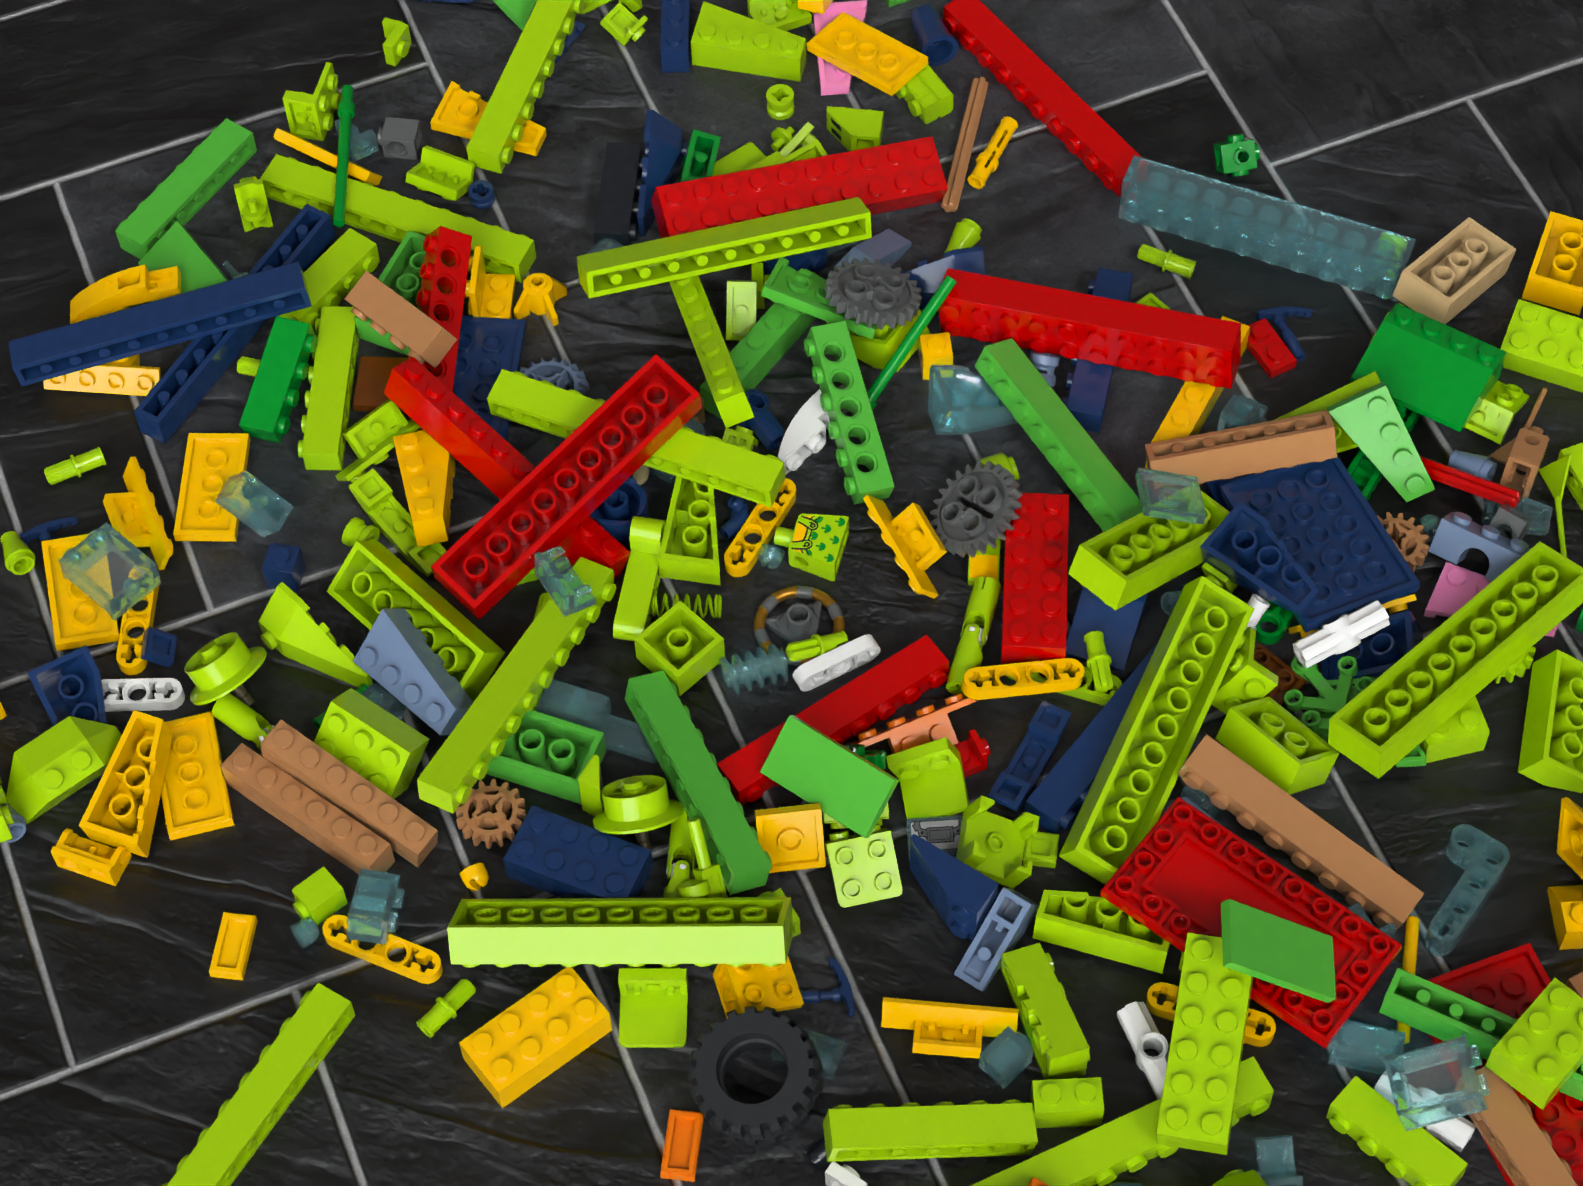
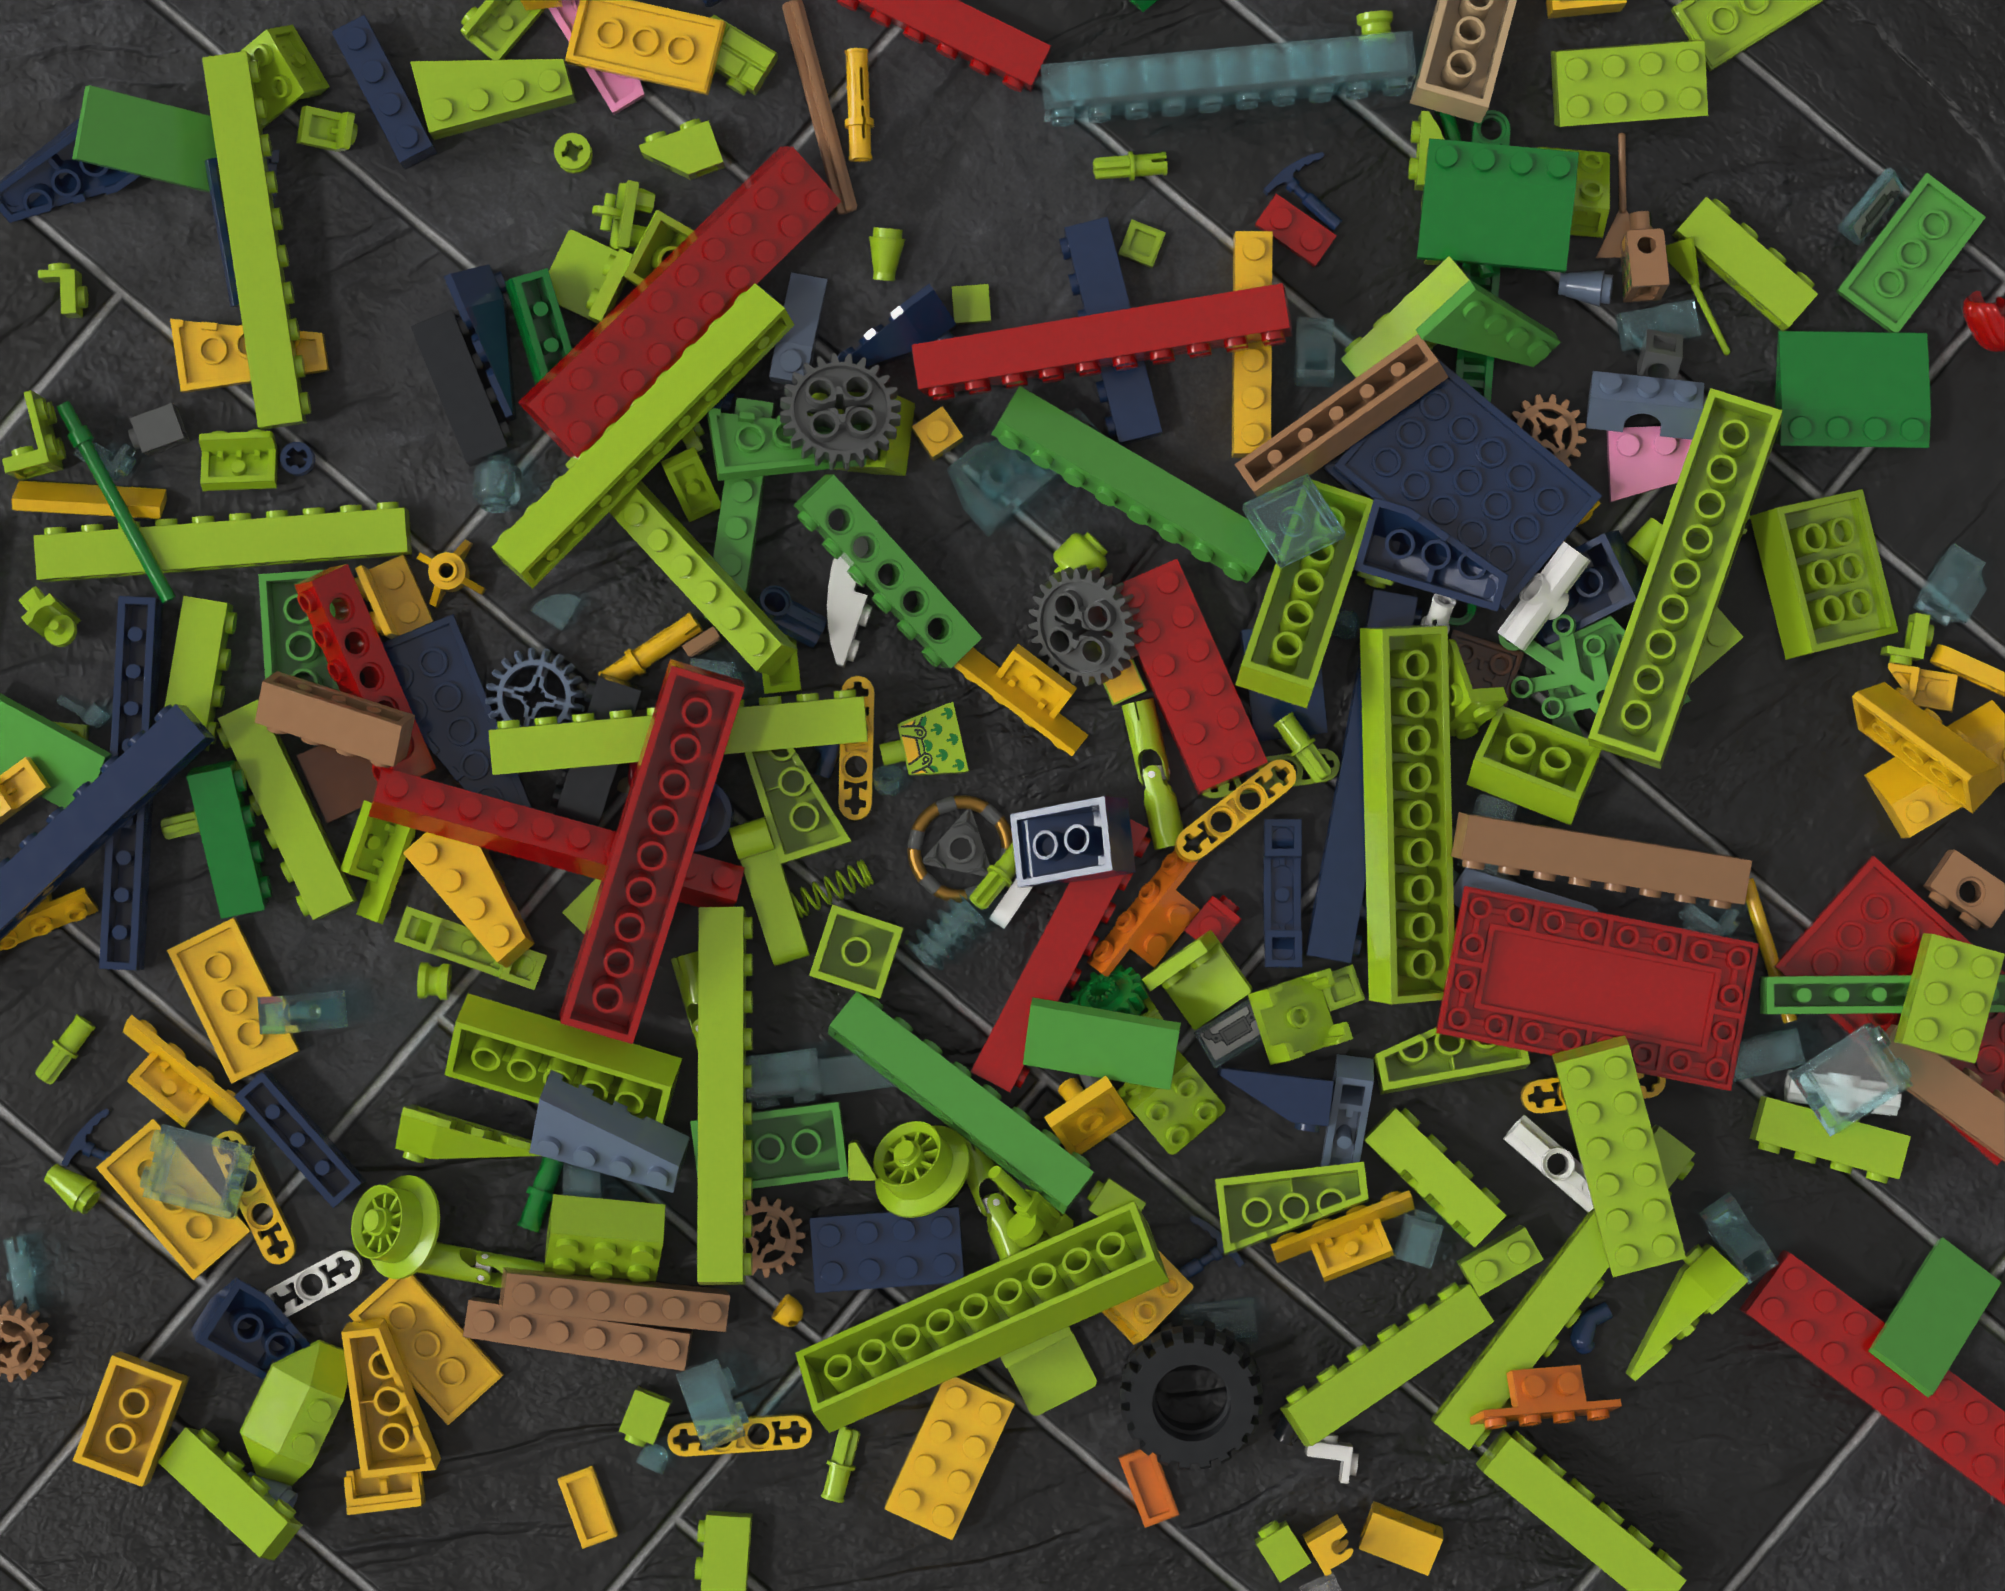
camera: 30 degrees left, 30 degrees up
(158, 647) = (301, 1221): dark blue tile -> none
(195, 585) = (300, 1138): none -> dark blue brick
(283, 565) = (376, 1063): dark blue brick -> none
(562, 582) = (705, 958): clear light blue hinge -> none
(600, 354) = (557, 609): none -> clear light blue tile
(888, 637) = (1073, 842): none -> dark blue slope
(909, 340) = (910, 458): green bar -> none
(914, 969) = (1278, 1202): none -> lime wedge
(1046, 365) = (1067, 394): sand blue wheel -> none
(1277, 951) = (1652, 1039): bright green tile -> none
(1431, 524) = (1573, 388): clear light blue hinge -> none
(1463, 895) = (1783, 831): clear light blue beam -> none
(1471, 483) = (1589, 315): red axle -> none

